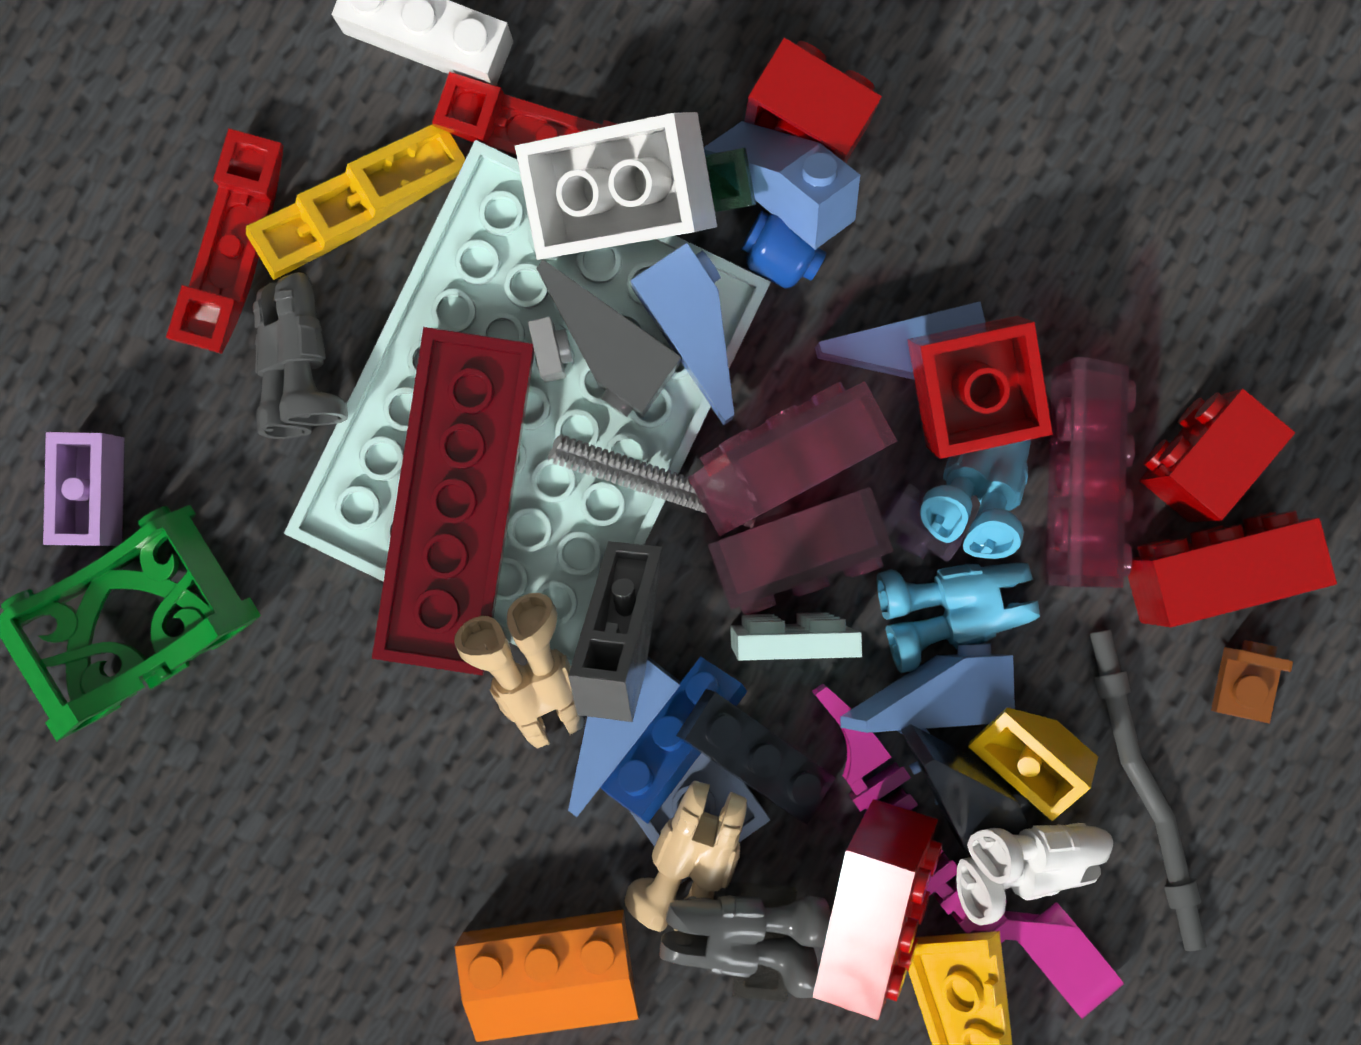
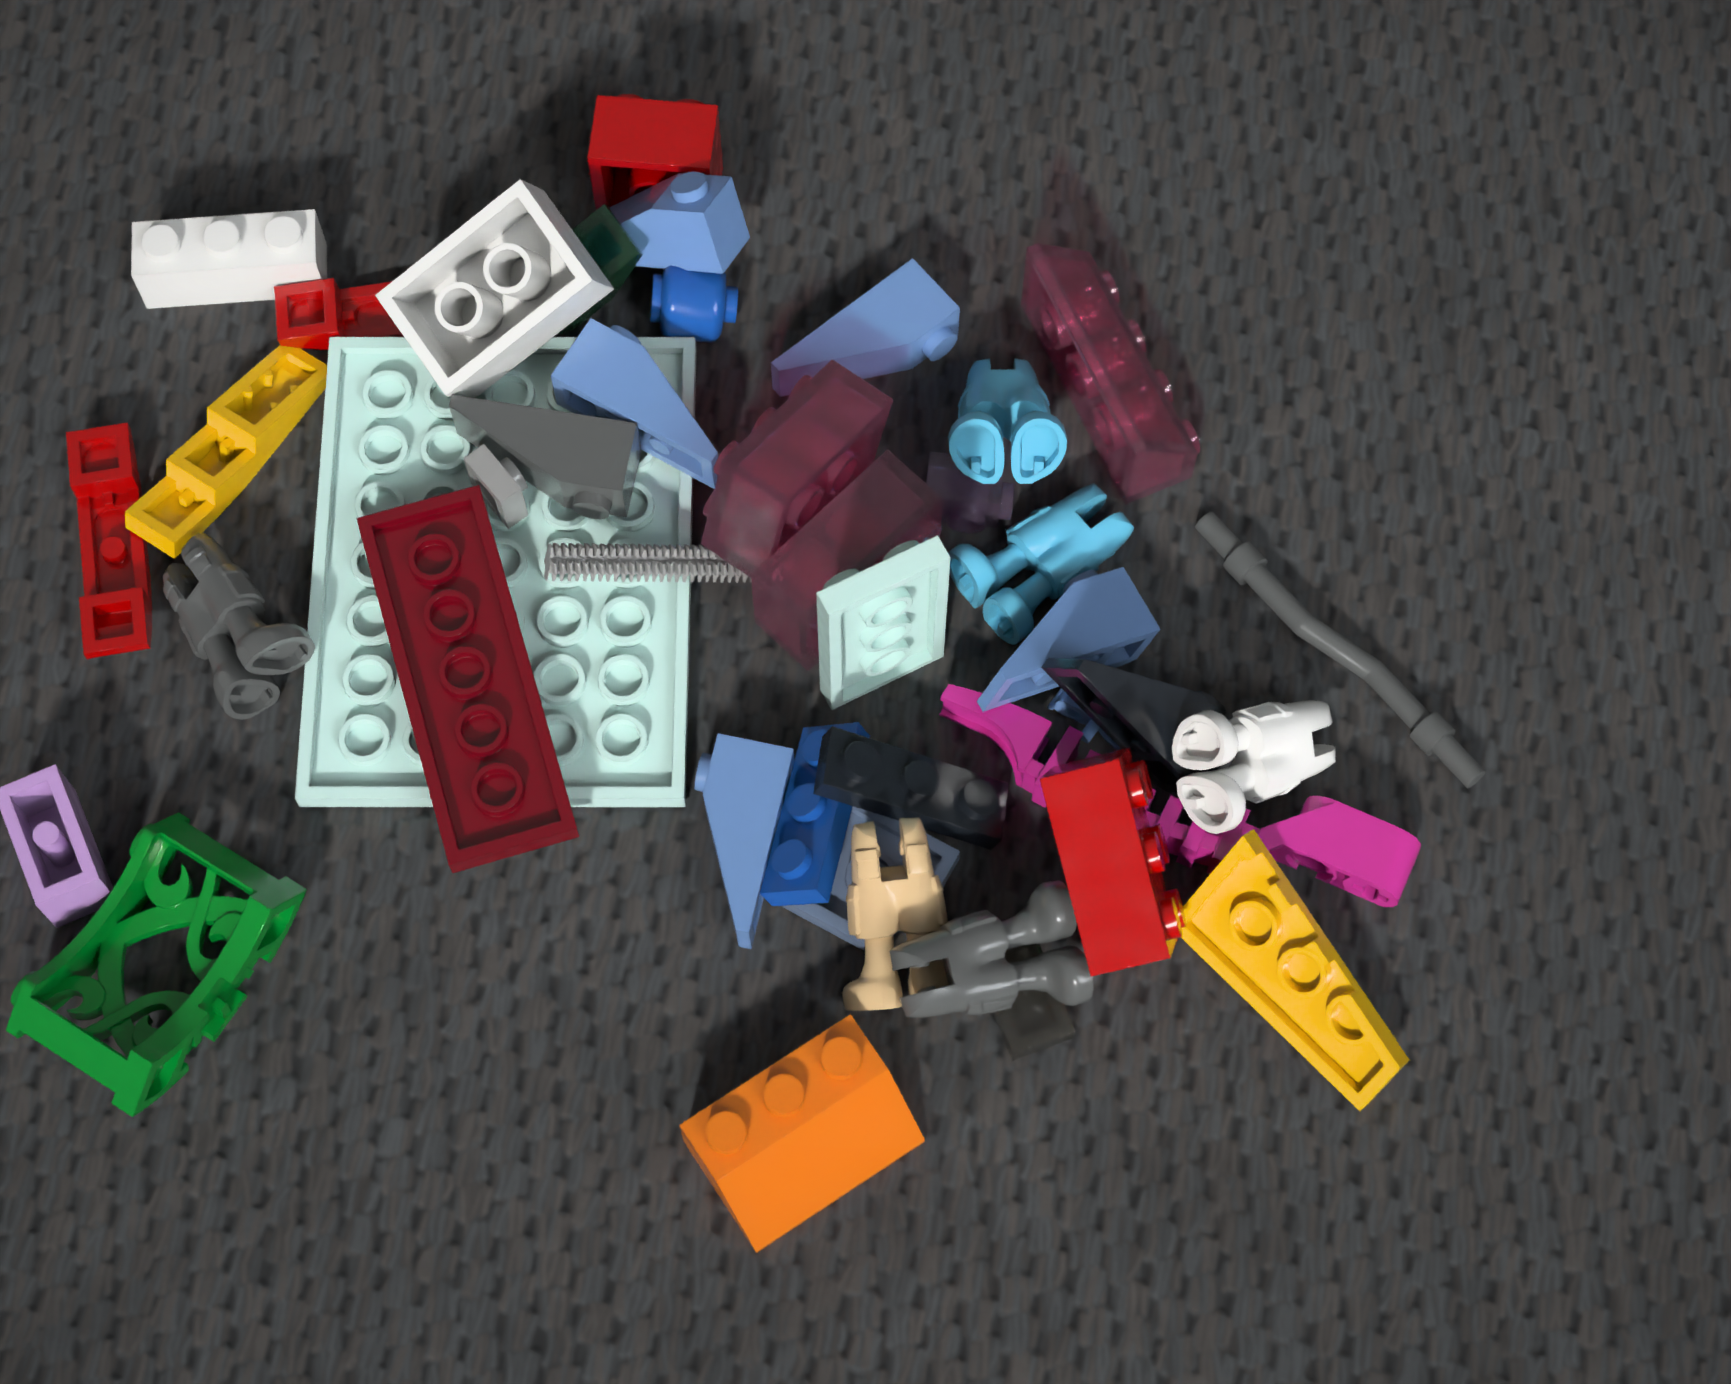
camera: 20 degrees left, 20 degrees down
(528, 689) = (646, 811): tan piece -> none
(616, 633) = (701, 718): dark grey slope -> none
(980, 386) = (948, 317): red brick -> none
(1037, 759) = (1196, 653): yellow slope -> none
(1215, 455) = (1215, 293): red brick -> none
(1230, 568) = (1291, 389): red brick -> none
(1249, 681) = (1379, 496): dark orange bracket -> none

